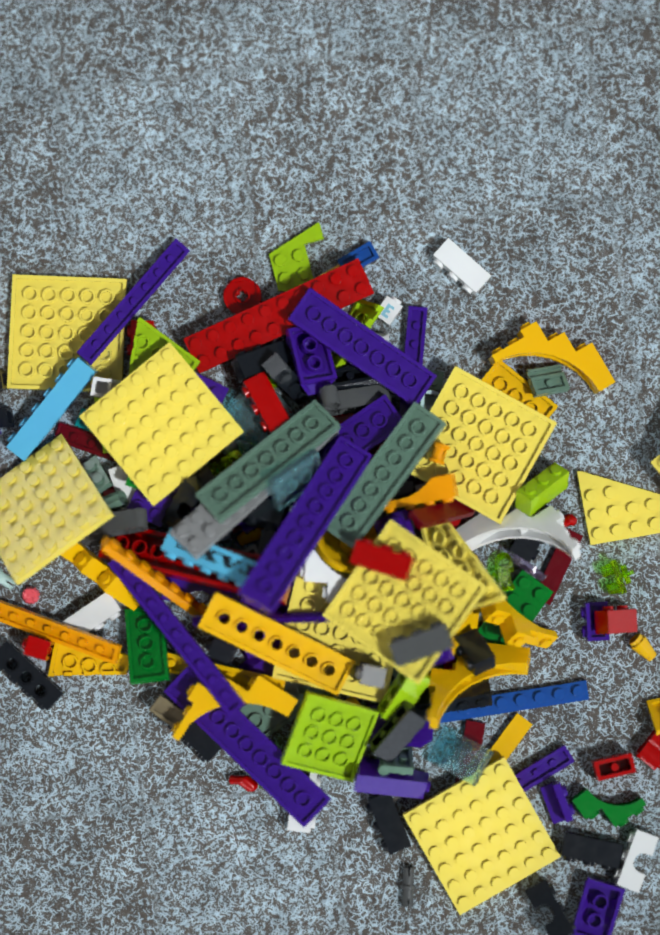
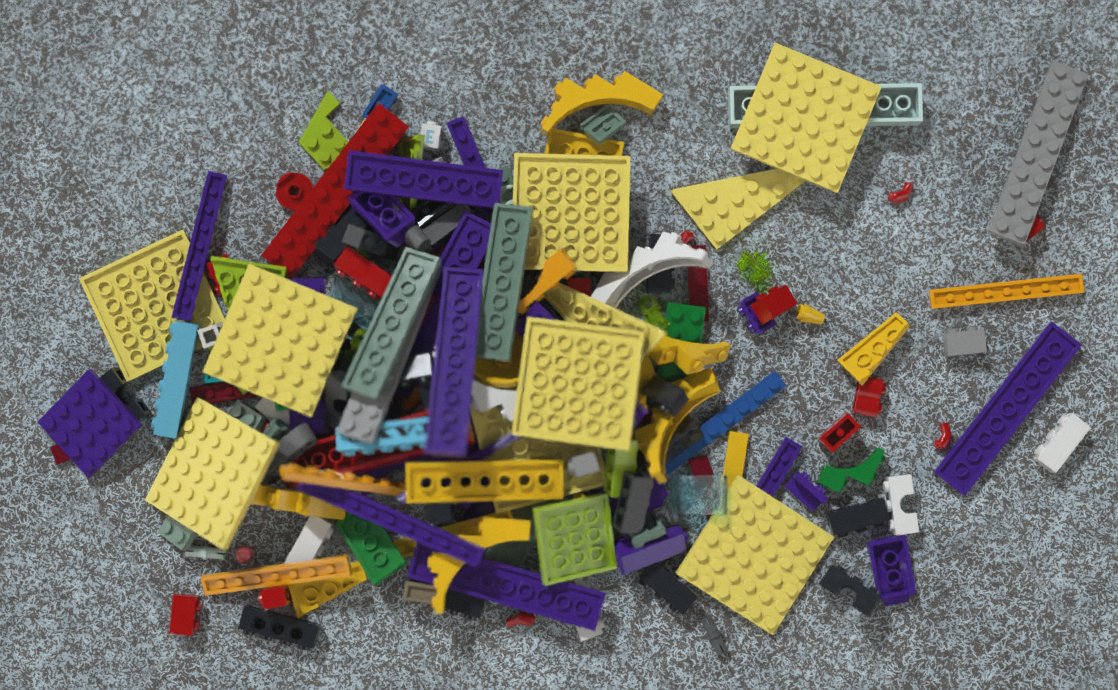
camera: 30 degrees left, 0 degrees up
(293, 480) = (423, 327): clear light blue plate -> none
(382, 559) = (538, 356): red brick -> none
(421, 644) = (612, 413): dark grey brick -> none
(439, 453) = (540, 237): light orange bush -> none
(440, 514) = (569, 290): dark red tile -> none
(461, 267) = (474, 64): white brick -> none
(528, 568) = (673, 297): clear purple tile -> none
(542, 489) = (648, 222): lime brick -> none

